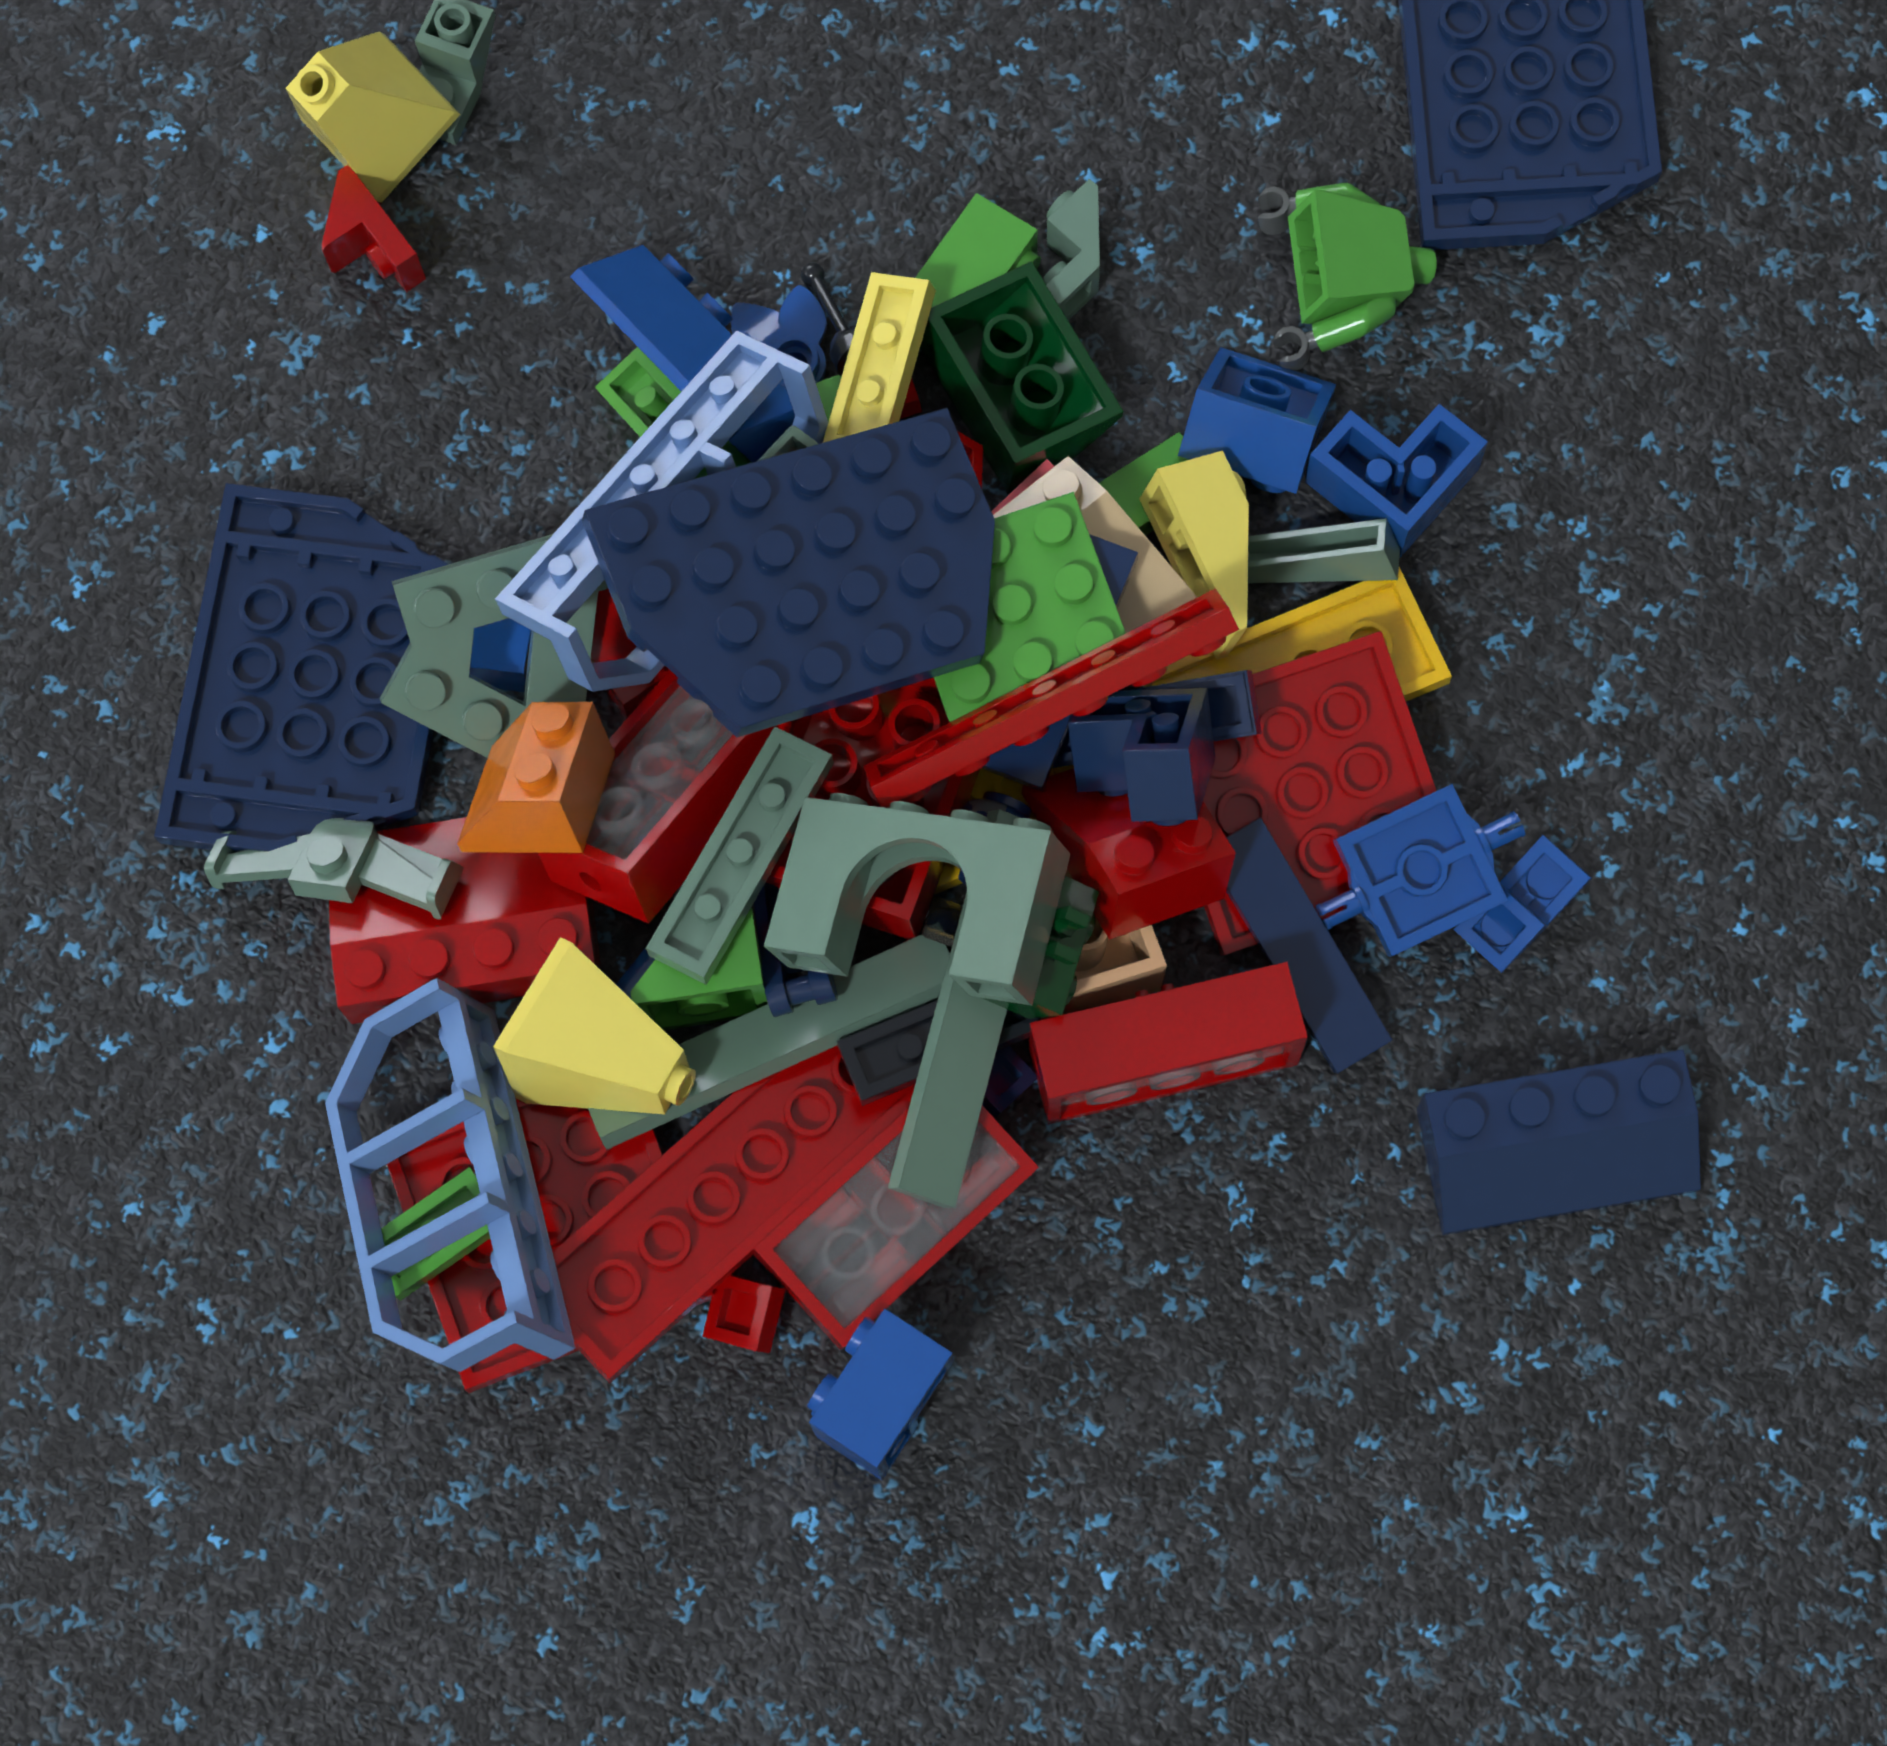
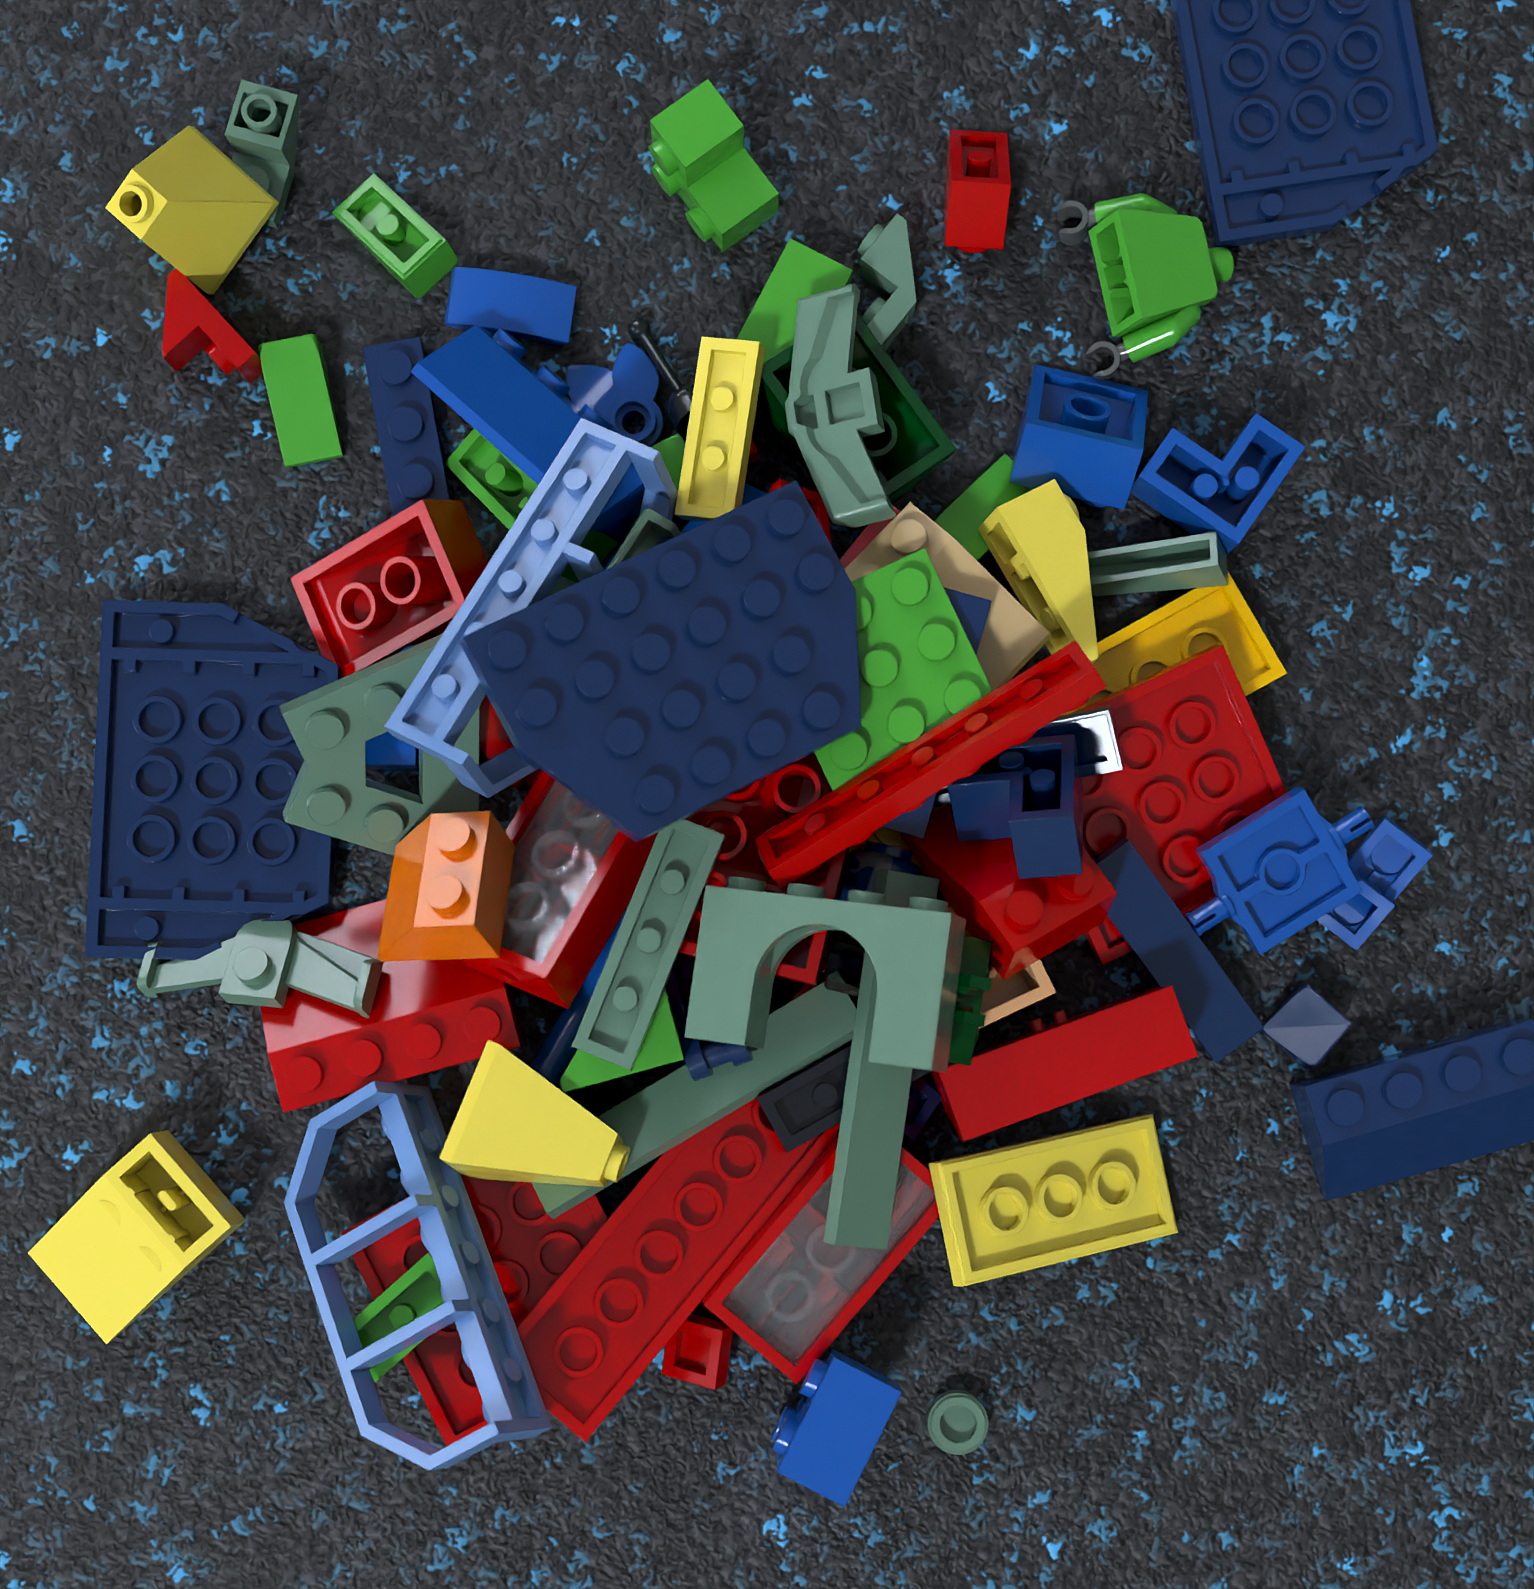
camera: 15 degrees left, 10 degrees up
(163, 1126) = (135, 1234): none -> light yellow slope
(456, 309) = (301, 400): none -> bright green slope
(519, 485) = (392, 584): none -> red slope
(561, 352) = (405, 424): none -> dark blue plate
(576, 162) = (396, 236): none -> bright green slope
(691, 234) = (511, 301): none -> blue slope
(901, 118) = (705, 161): none -> bright green brick
(1000, 353) = (835, 408): none -> sand green plate
(1016, 1426) = (957, 1422): none -> sand green tile
(1143, 1188) = (1052, 1199): none -> light yellow tile
(1175, 169) = (976, 190): none -> red slope
(1437, 1043) = (1305, 1026): none -> dark blue slope

